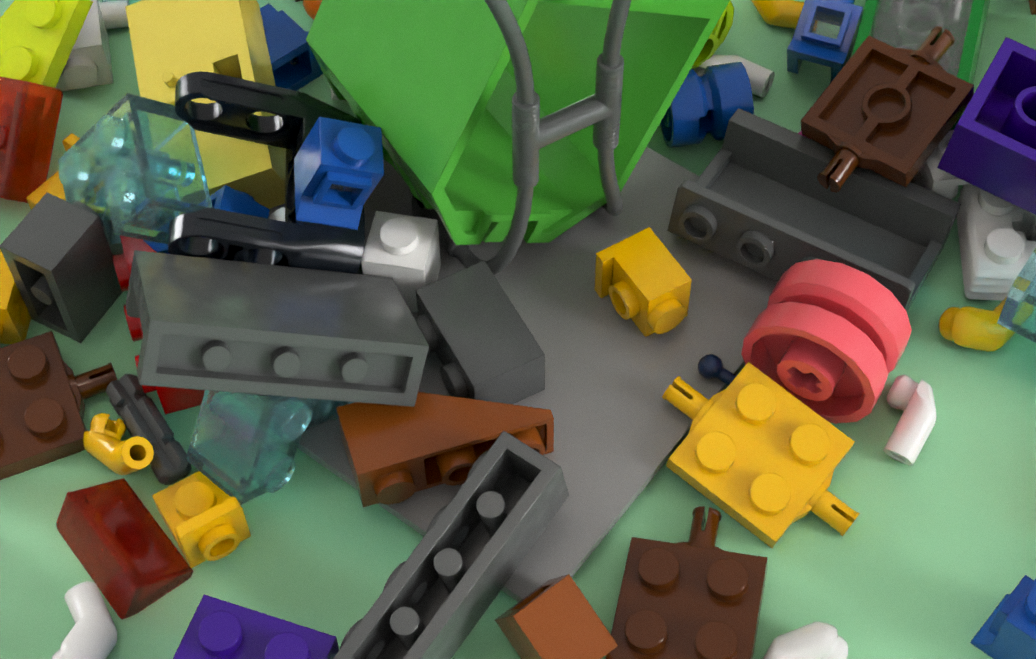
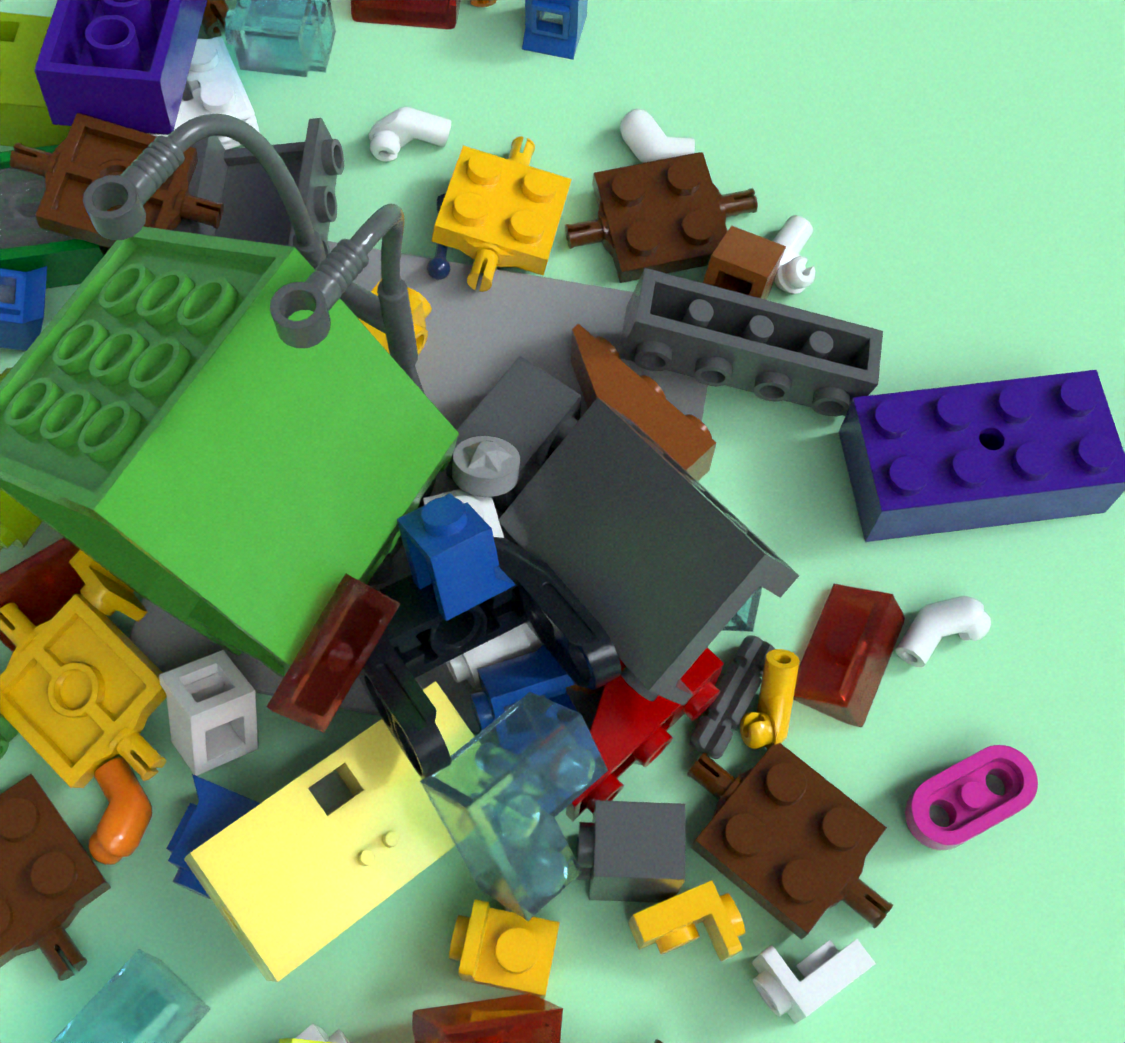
camera: 120 degrees left, 10 degrees up
(202, 518) = (789, 617): yellow bracket -> none
(307, 67) = (333, 654): none -> clear red slope
(433, 265) = (485, 466): none -> light grey tile
(829, 338) = (386, 171): coral wheel -> none
(974, 327) = (287, 105): yellow arm -> none

